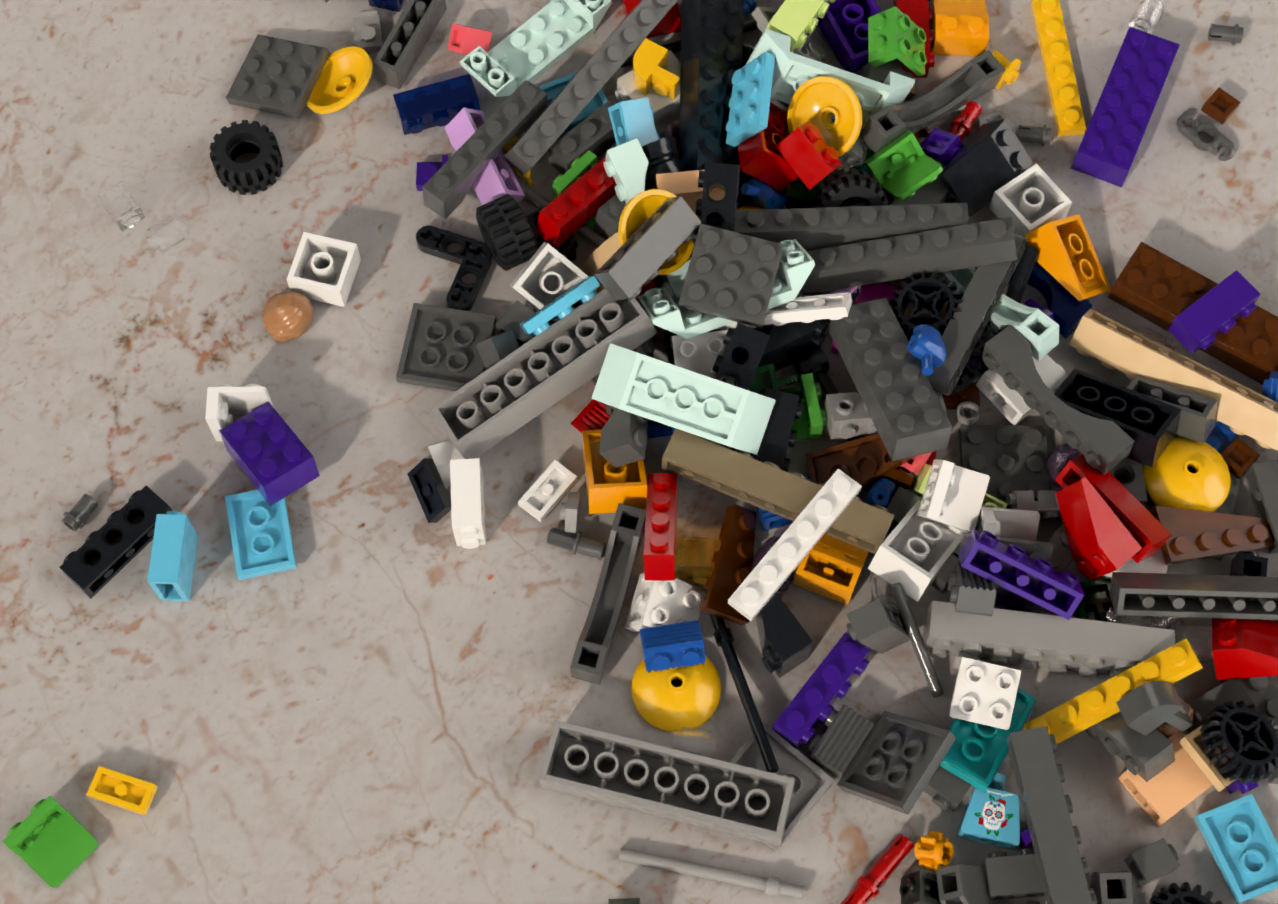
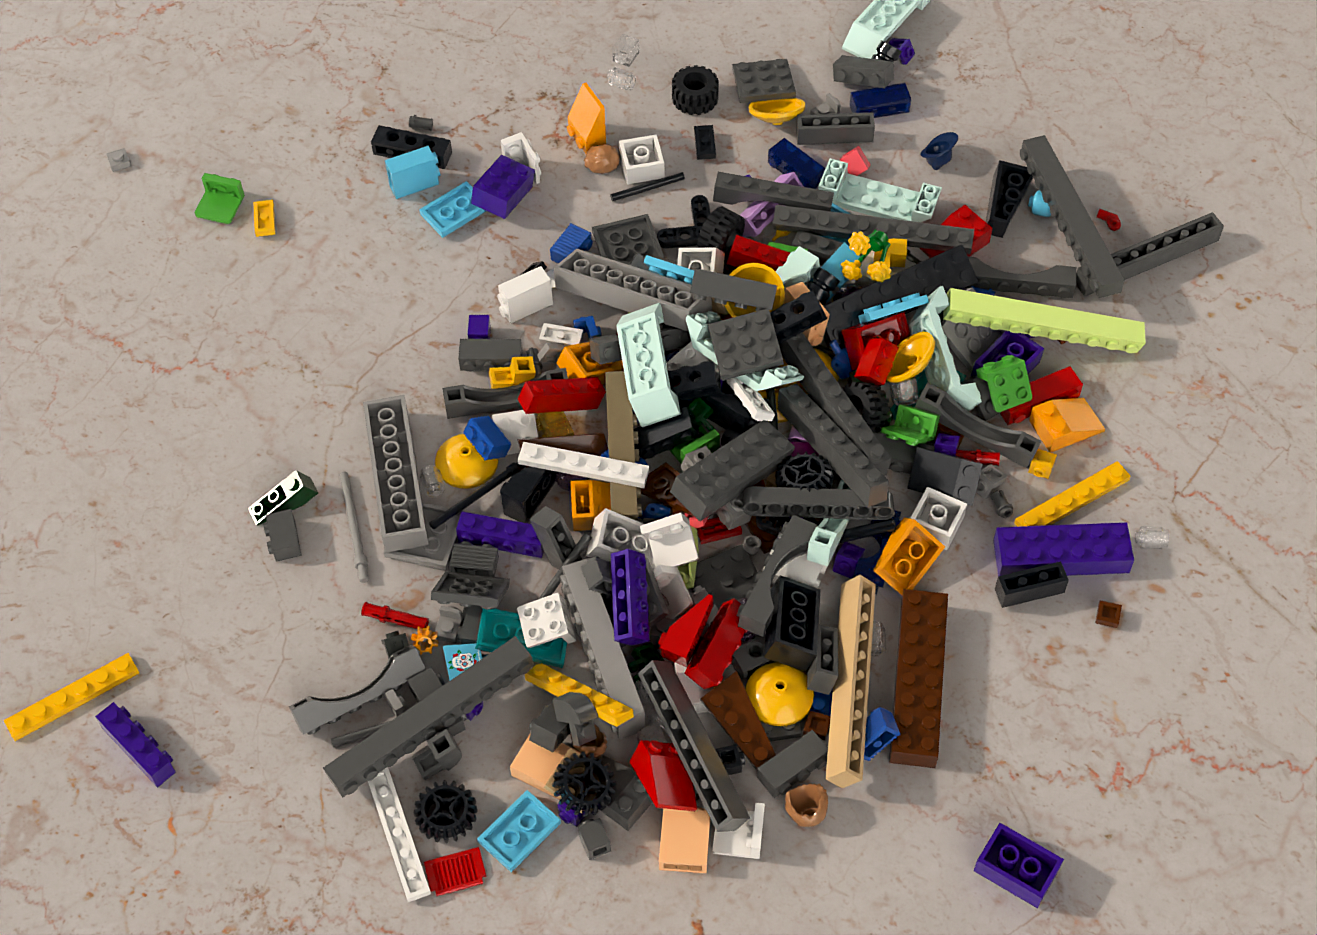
camera: 65 degrees right, 10 degrees down
(226, 301) = (587, 120): none -> light orange slope
(334, 187) = (705, 142): none -> black plate
(362, 285) = (647, 186): none -> black bar
(410, 415) = (571, 239): none -> blue brick
(485, 585) = (479, 327): none -> dark purple brick
(532, 588) = (487, 353): none -> dark grey brick
(560, 449) = (588, 326): none -> blue bracket
(584, 572) = (520, 370): none -> yellow brick
(653, 81) = (859, 244): none -> yellow plant
(922, 817) = (449, 623): none -> light grey bracket
(928, 347) = (762, 475): blue piece -> none
(1152, 862) = (480, 774): dark grey brick -> none
(1159, 157) = (1031, 584): none -> black brick
(1192, 134) = (1078, 624): dark grey piece -> none
(1215, 313) = (911, 652): dark purple brick -> none
(1226, 33) = (1178, 600): dark grey pin -> none

